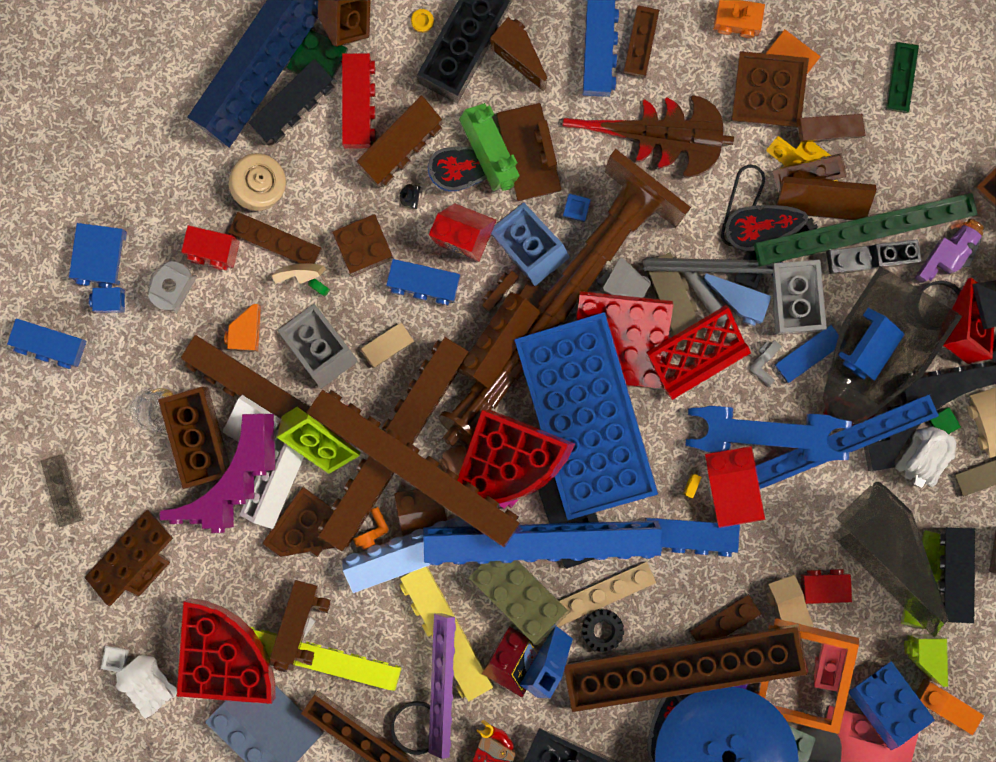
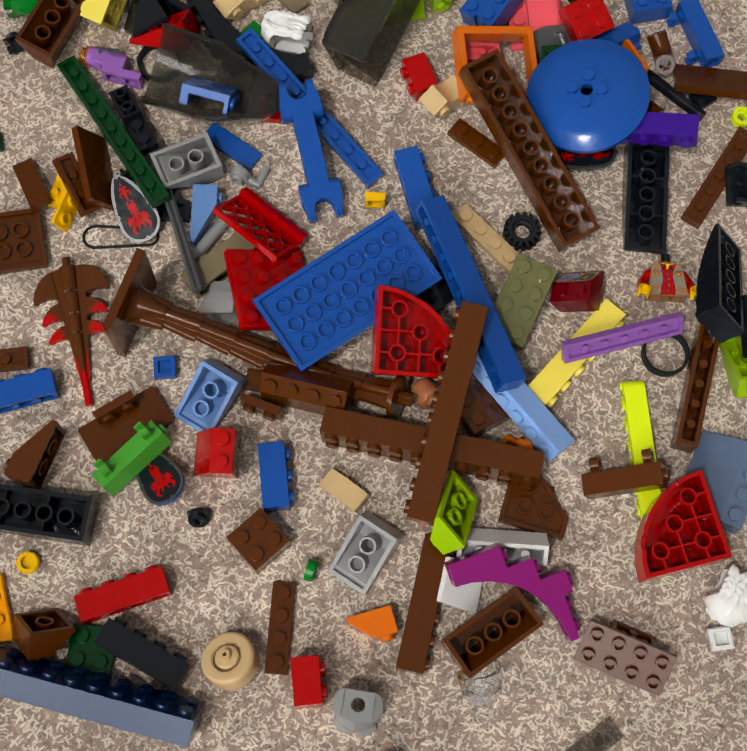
camera: 110 degrees left, 15 degrees down
(303, 272) = (301, 584): tan slope -> none
(400, 142) = (151, 539): reddish brown slope -> none
(548, 665) = (572, 257): blue slope -> none
(735, 486) = (364, 161): red slope -> none

